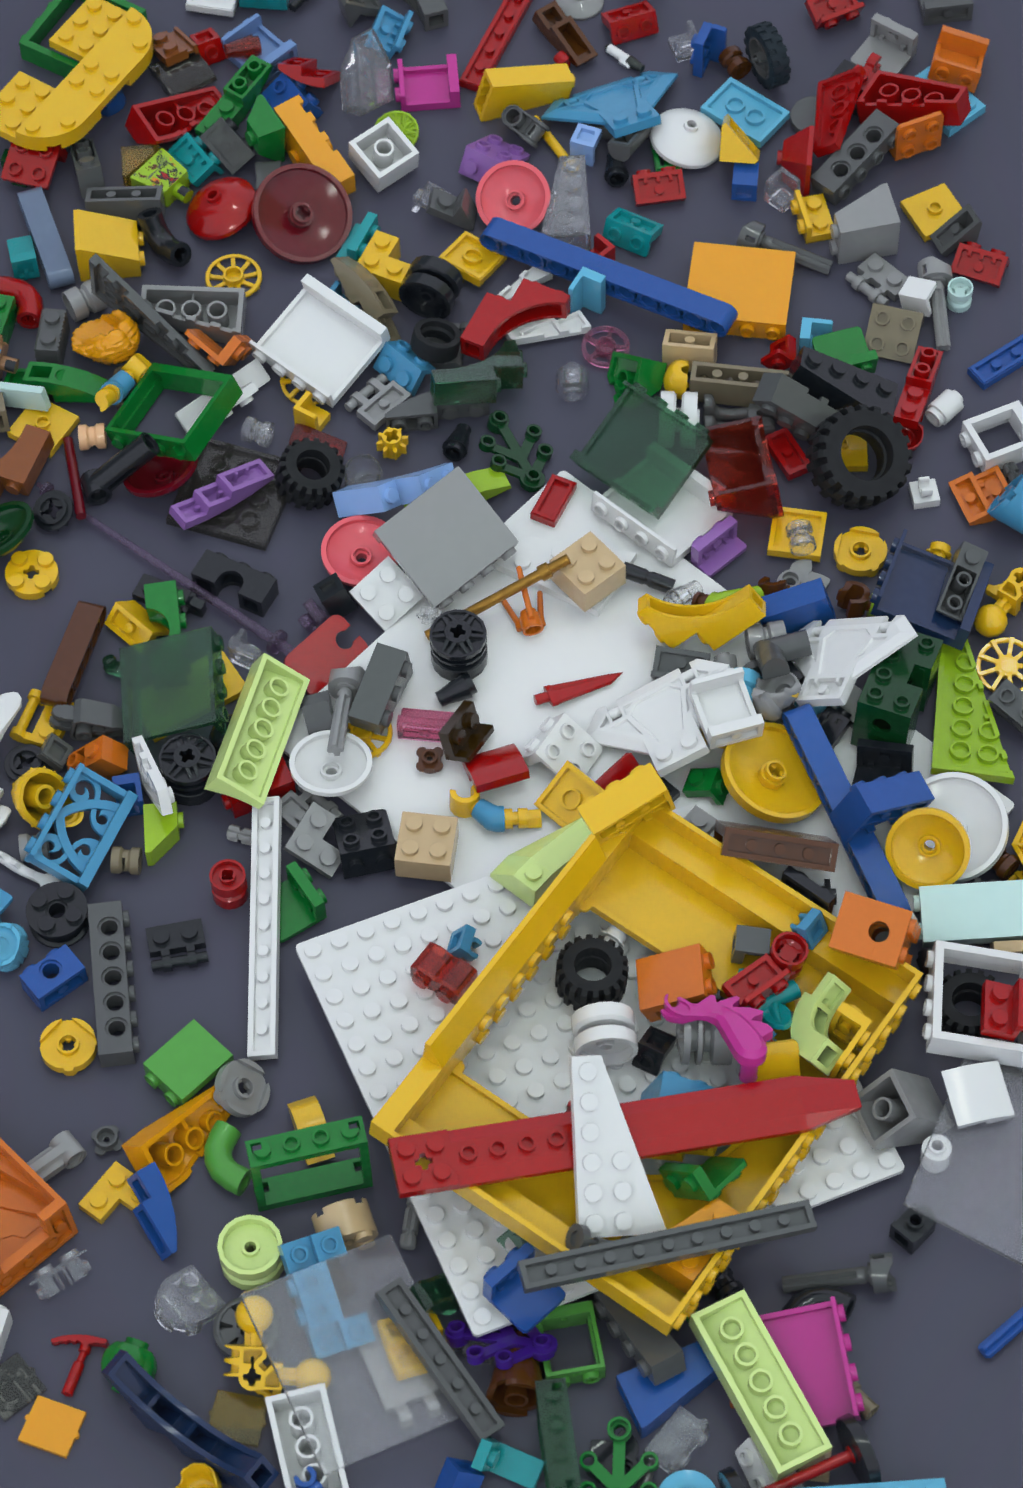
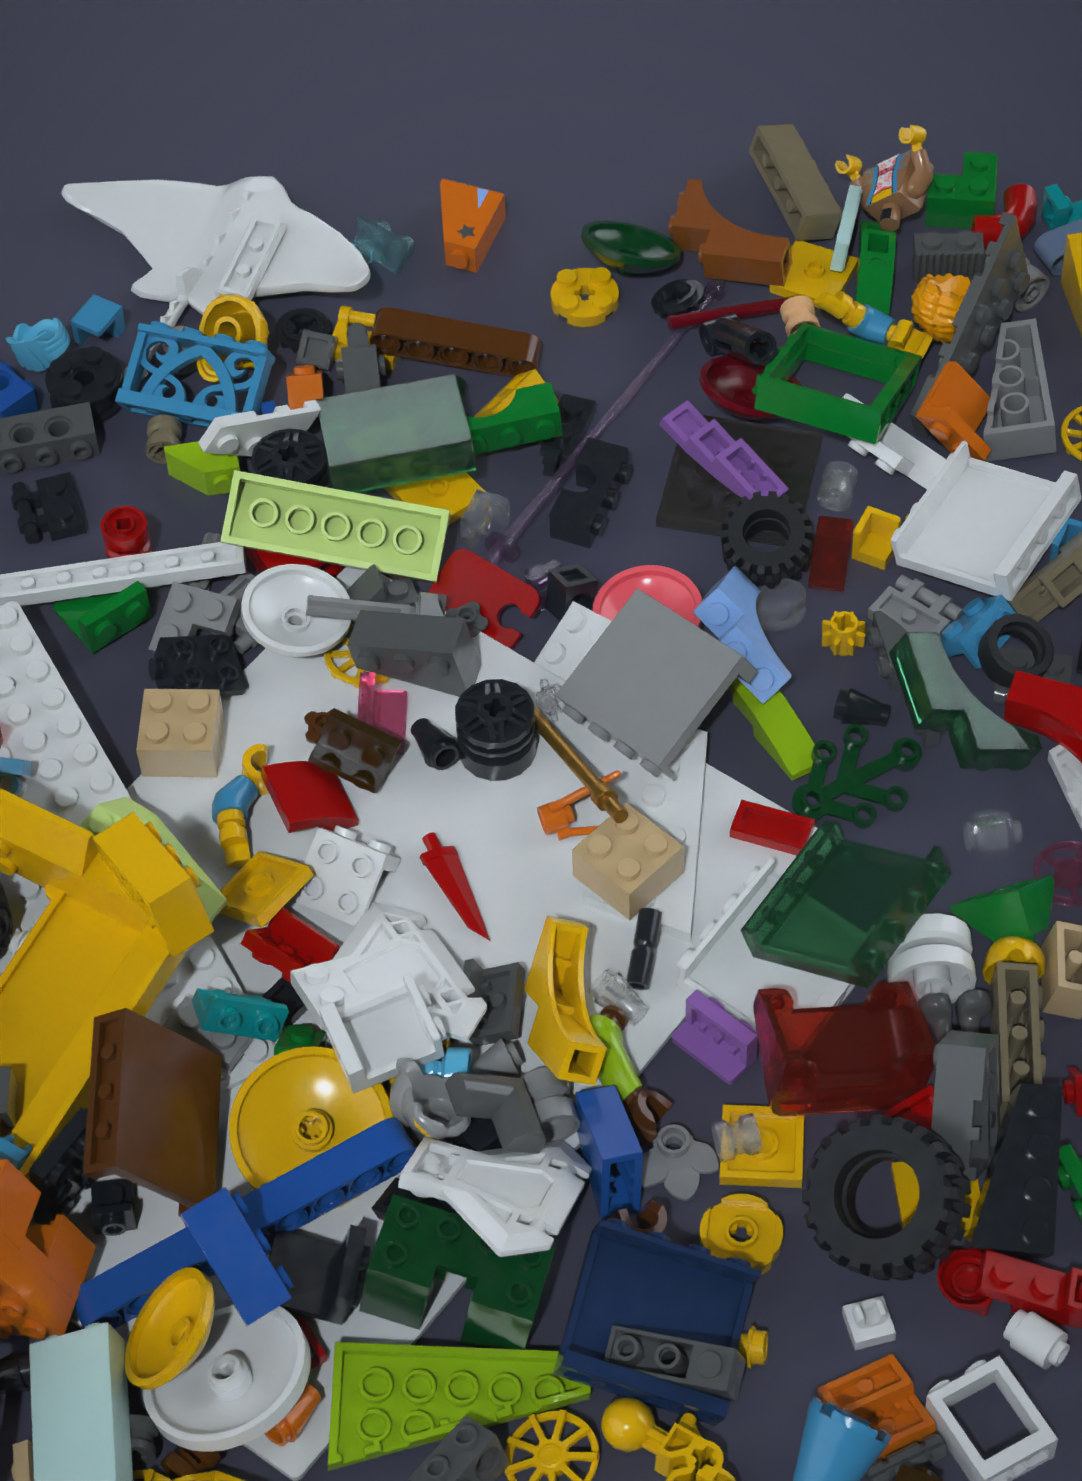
camera: 85 degrees right, 5 degrees down
(349, 657) = (470, 610): none -> dark grey plate
(689, 801) = (239, 1014): none -> teal bracket

